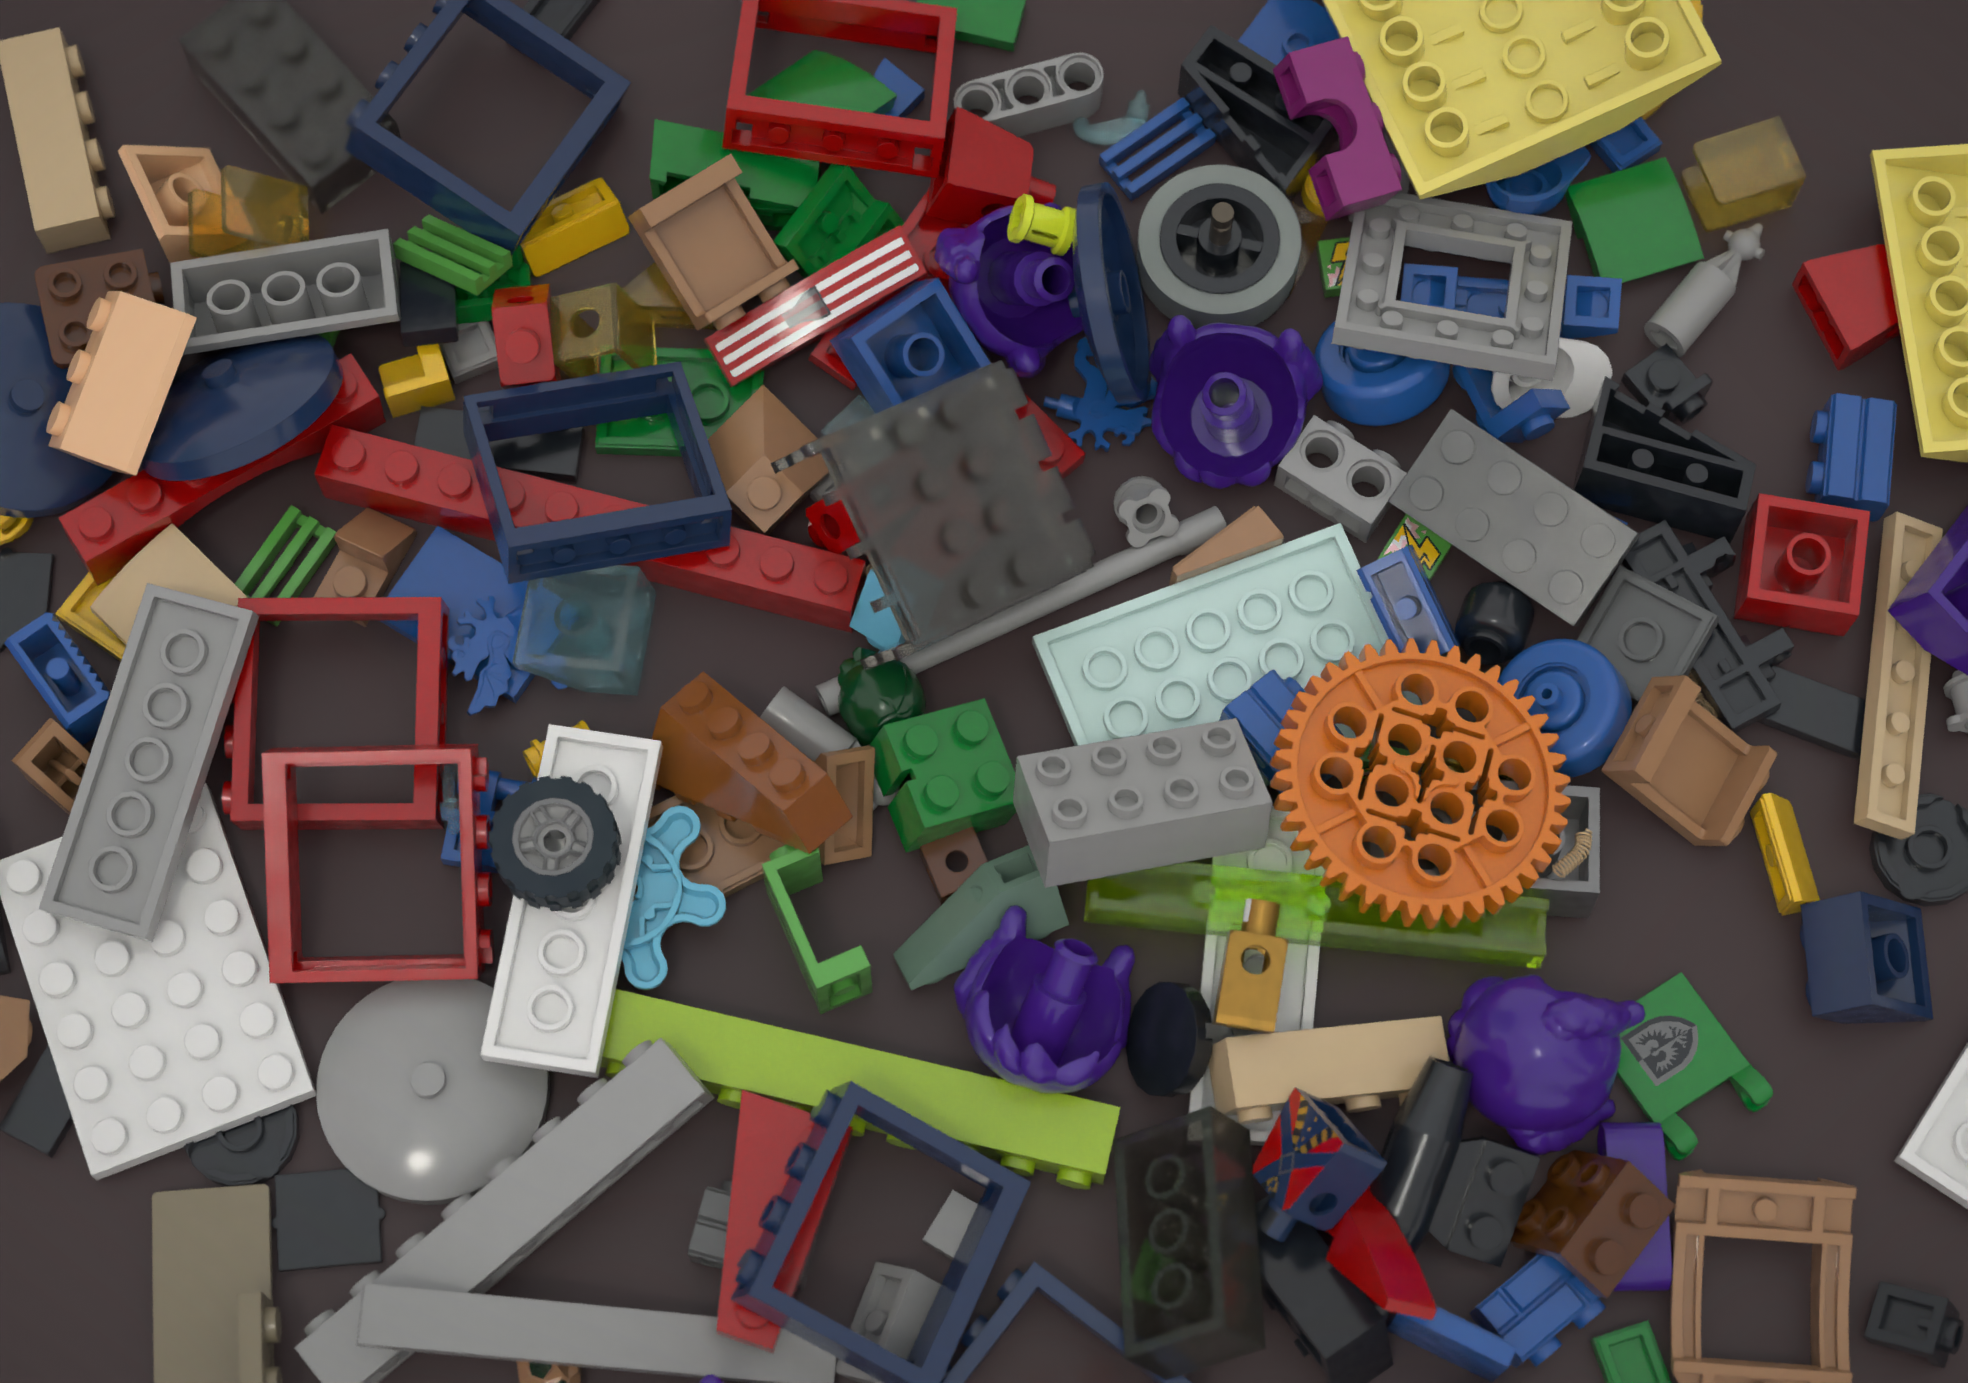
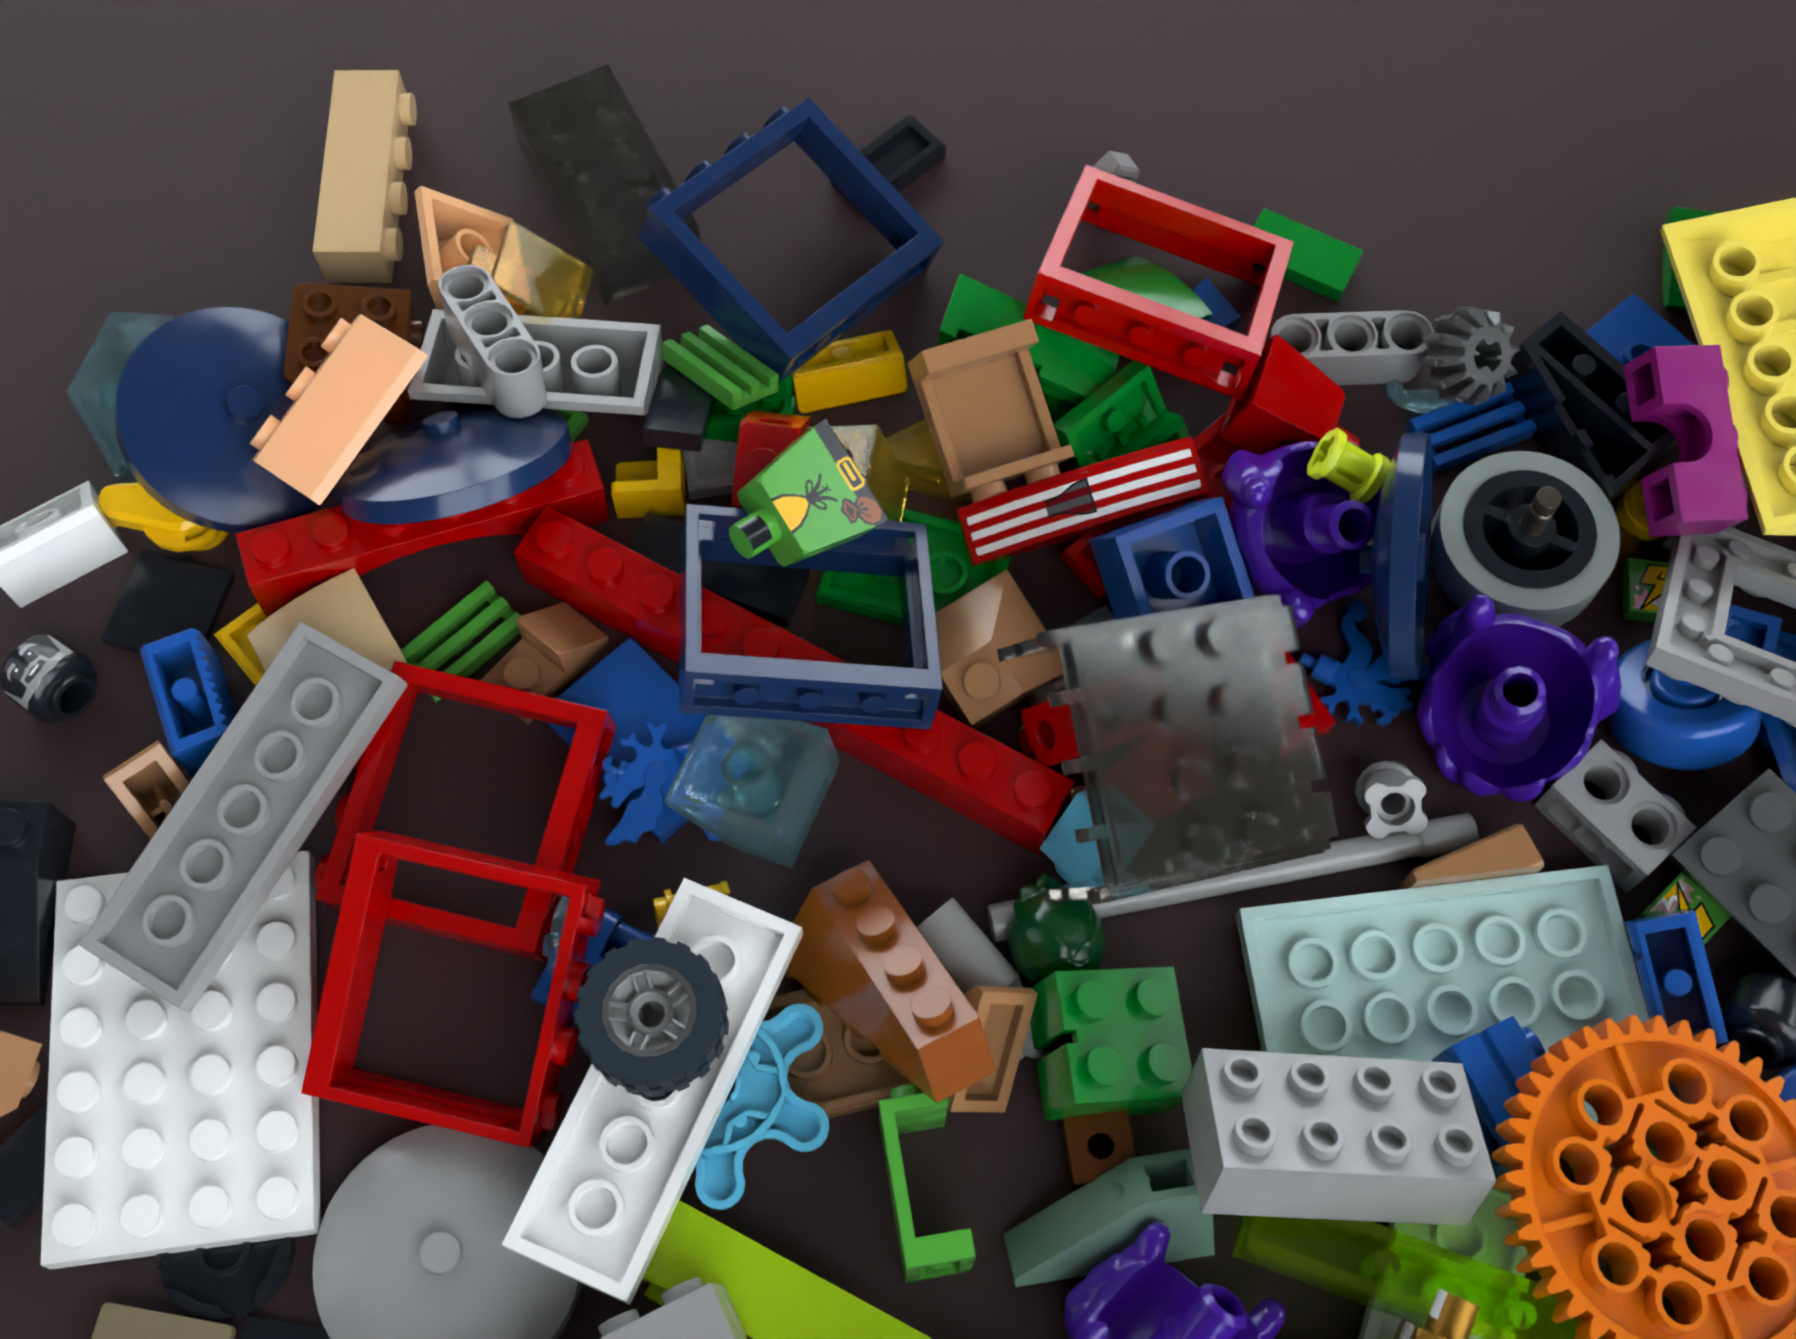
camera: 15 degrees right, 5 degrees down
(243, 284) = (493, 341): none -> light grey beam
(570, 370) = (805, 501): none -> bright green torso
(1137, 85) = (1469, 355): none -> dark grey gear

